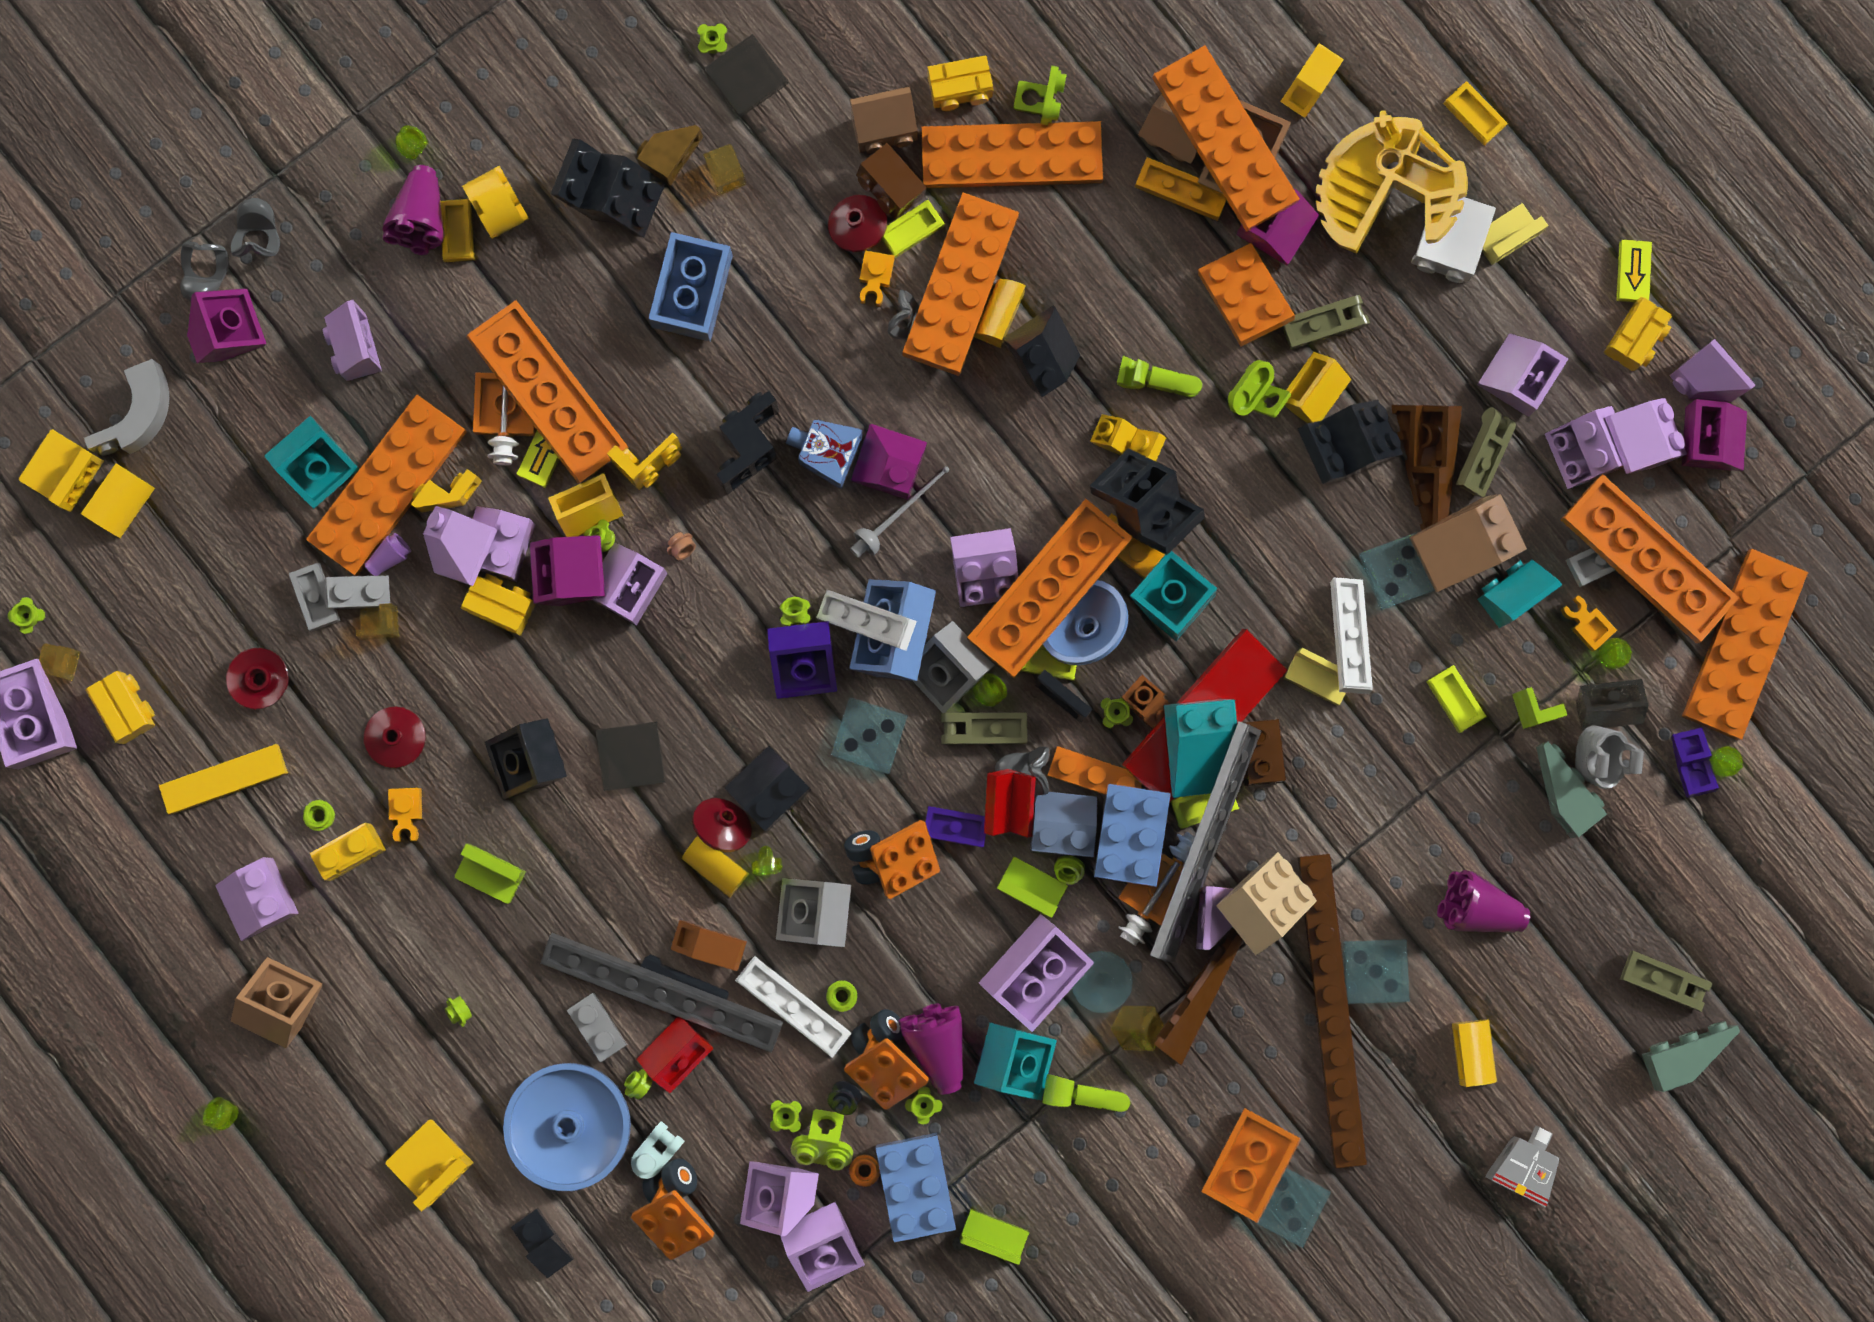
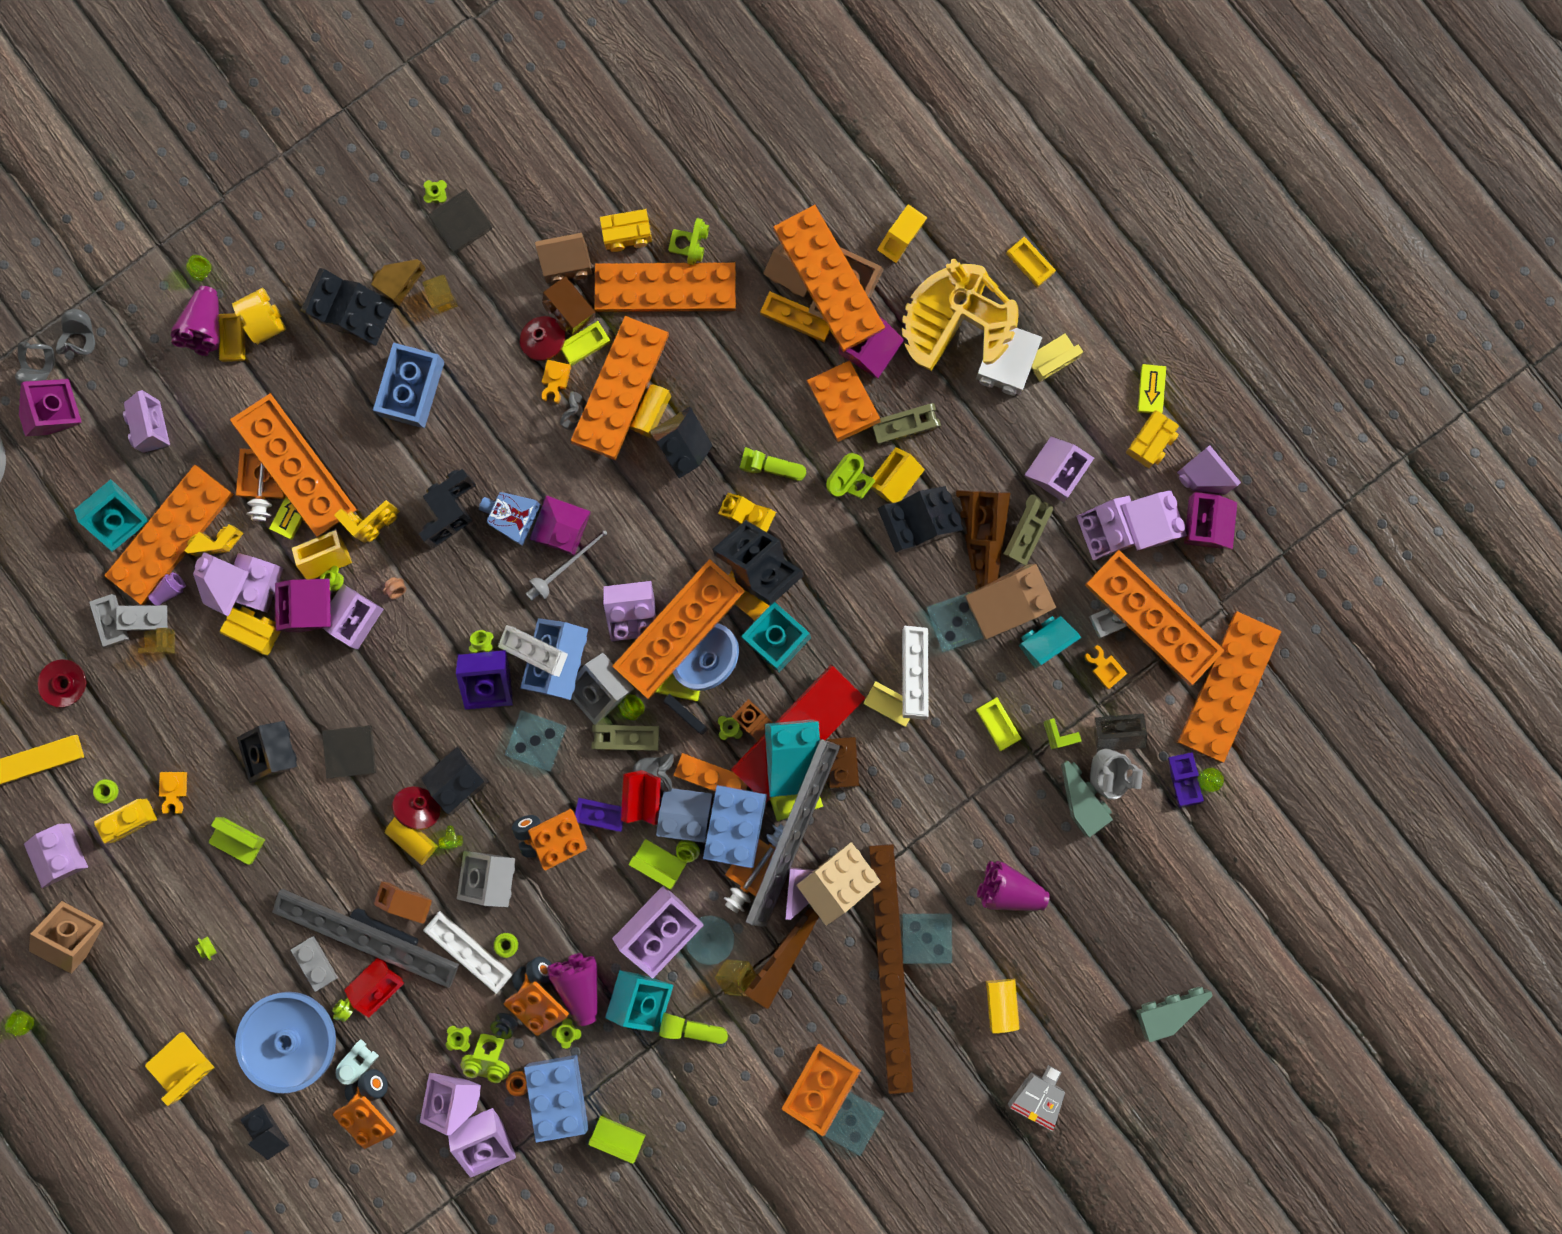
camera: 15 degrees right, 0 degrees up
(408, 743) = (178, 733): dark red dish -> none
(1615, 653) = (1125, 691): clear neon green tile -> none
(1665, 980) = (1155, 952): olive plate -> none

